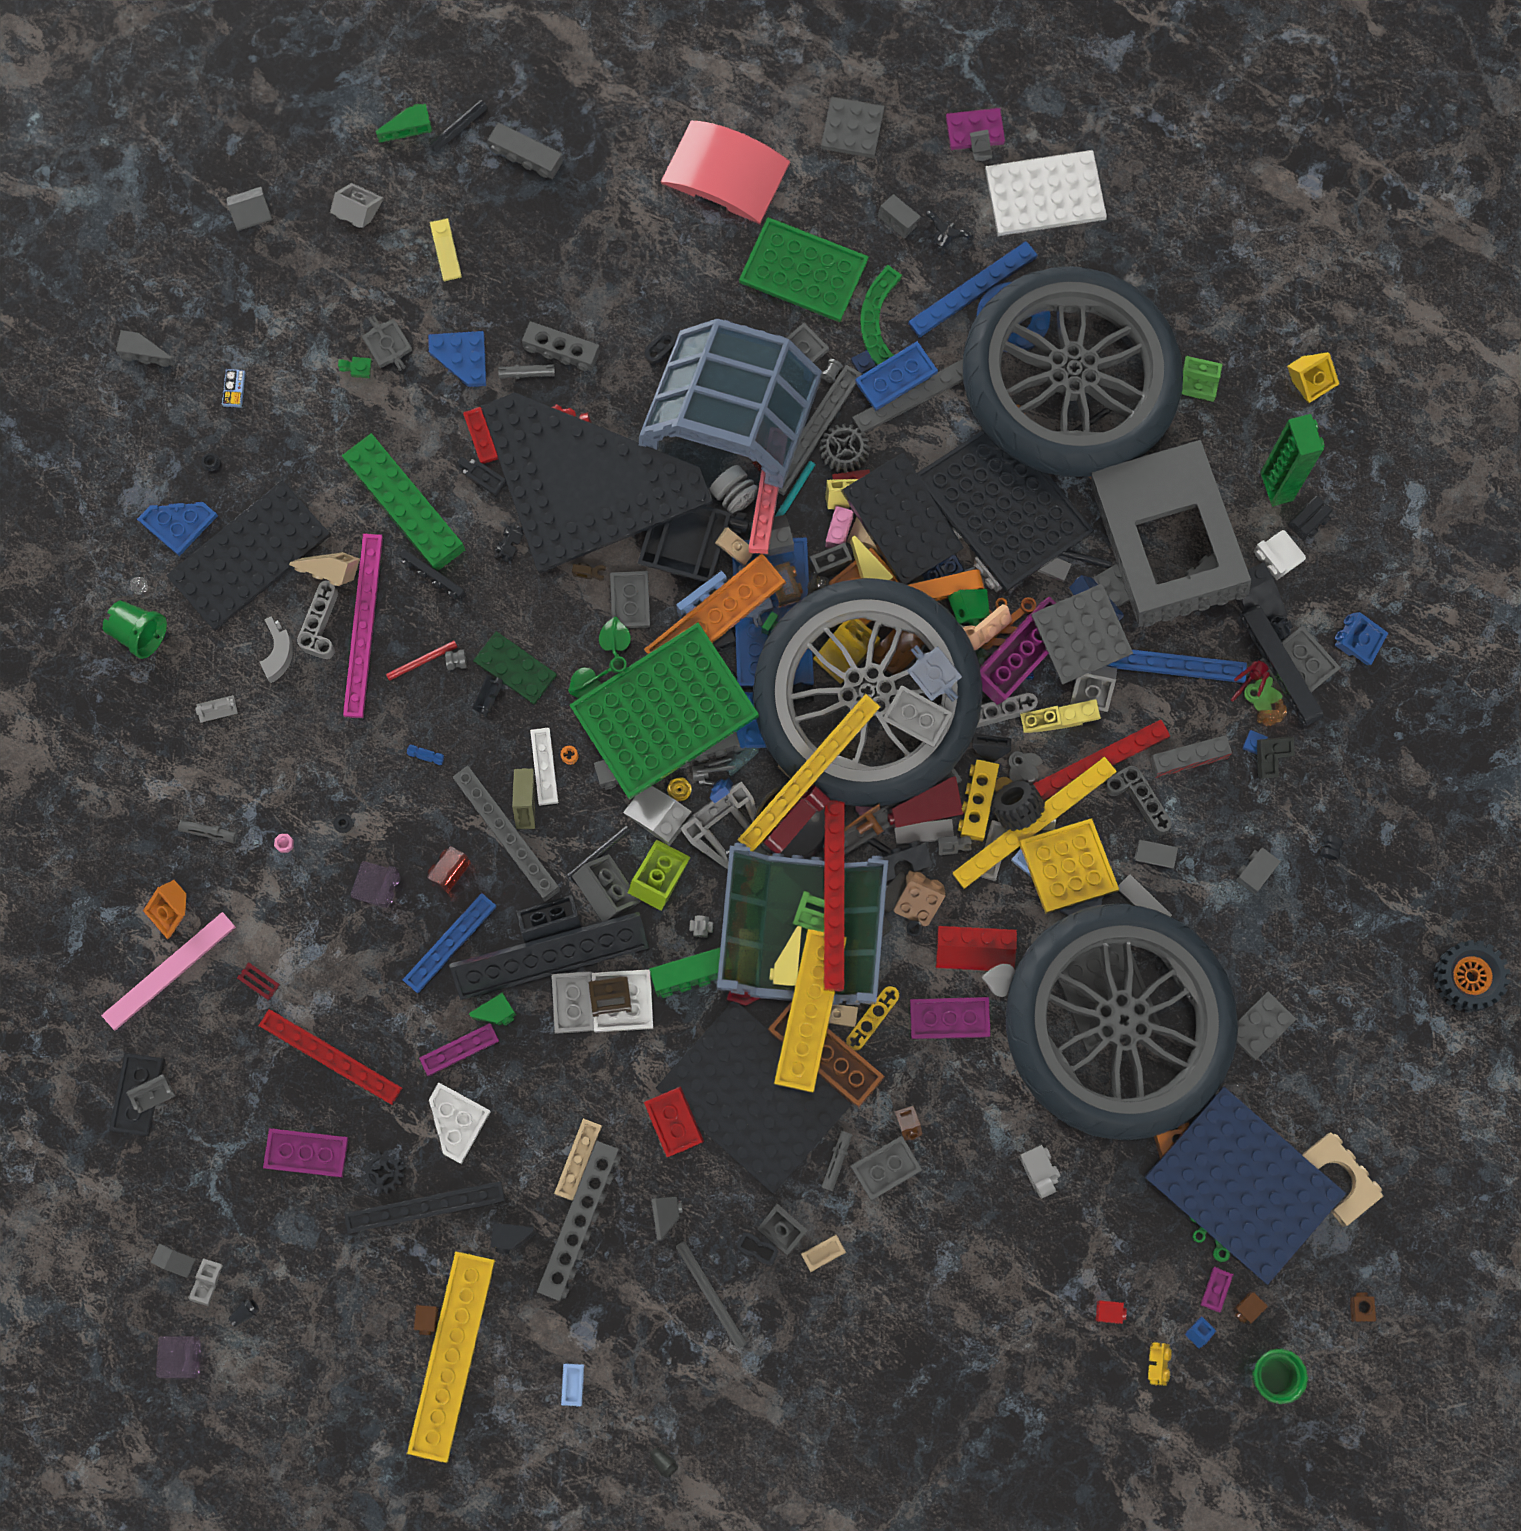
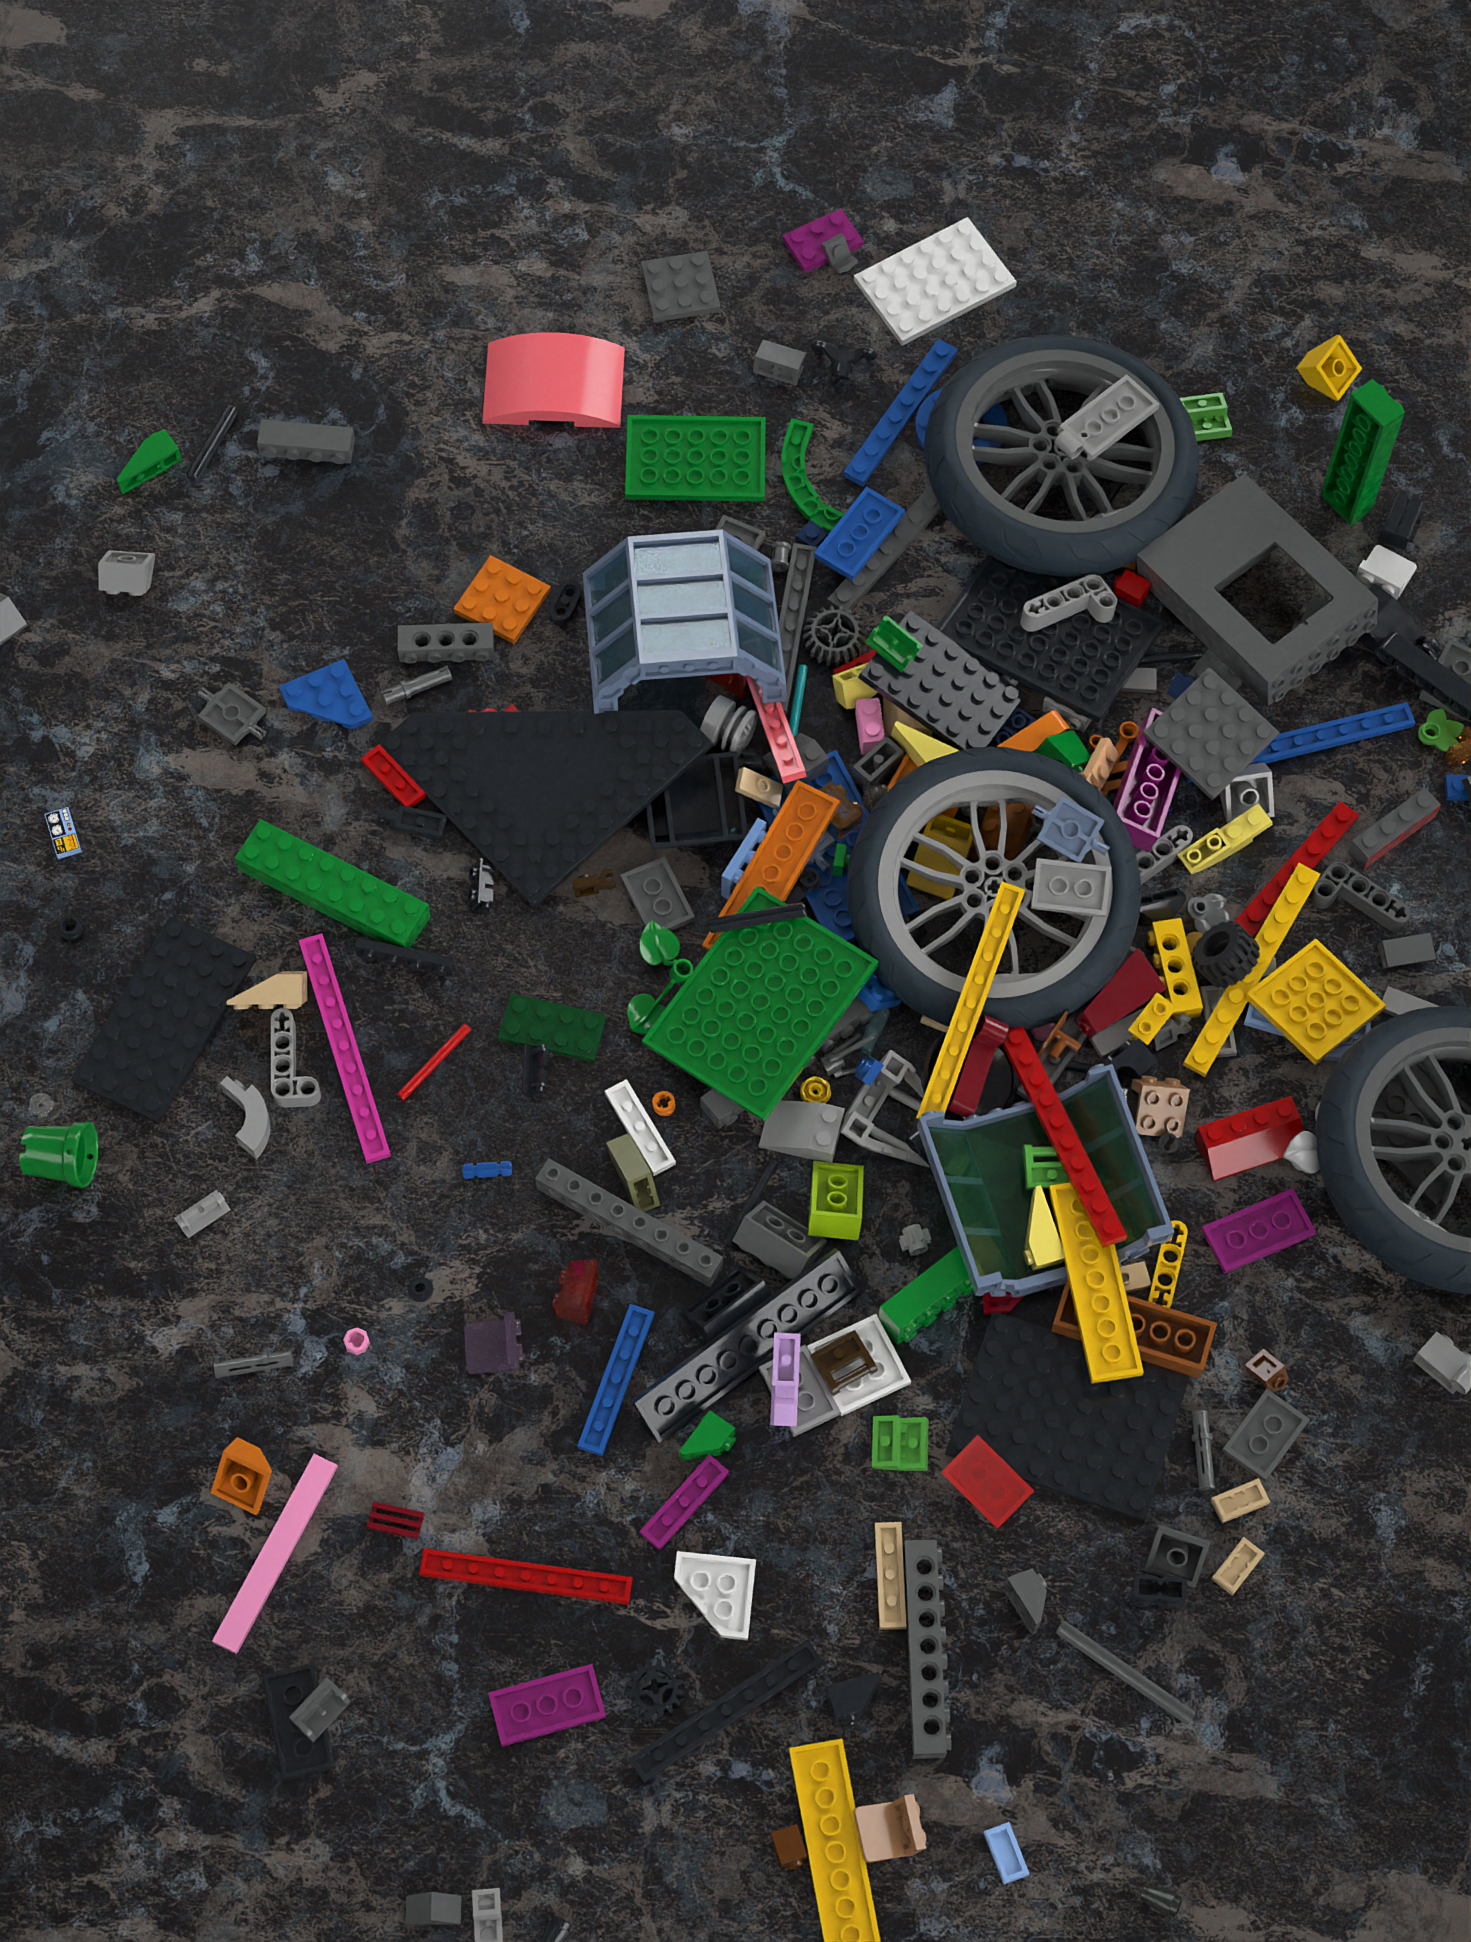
camera: 25 degrees left, 10 degrees down
(177, 523) = (59, 1014): blue plate -> none
(358, 367) = (208, 753): green plate -> none
(445, 249) = (257, 583): light yellow slope -> none
(456, 659) = (477, 1044): dark grey wheel -> none
(497, 1336) = (890, 1829): none -> medium nougat bracket
(559, 995) = (785, 1379): none -> lavender plate
(616, 327) = (502, 597): none -> orange plate
(627, 1068) = (900, 1443): none -> bright green slope
(687, 647) = (757, 917): none -> black axle
(742, 625) = (812, 874): none -> black plate
(846, 1207) = (1240, 1500): none -> tan plate
(875, 476) = (894, 643): none -> green hinge
(942, 832) = (1151, 1019): none -> yellow hinge
(998, 491) = (1085, 593): none -> light grey beam
(1080, 495) = (1131, 588): none -> red brick
(1111, 359) = (1105, 419): none -> light grey hinge
(1257, 670) = (1424, 706): dark red plant -> none

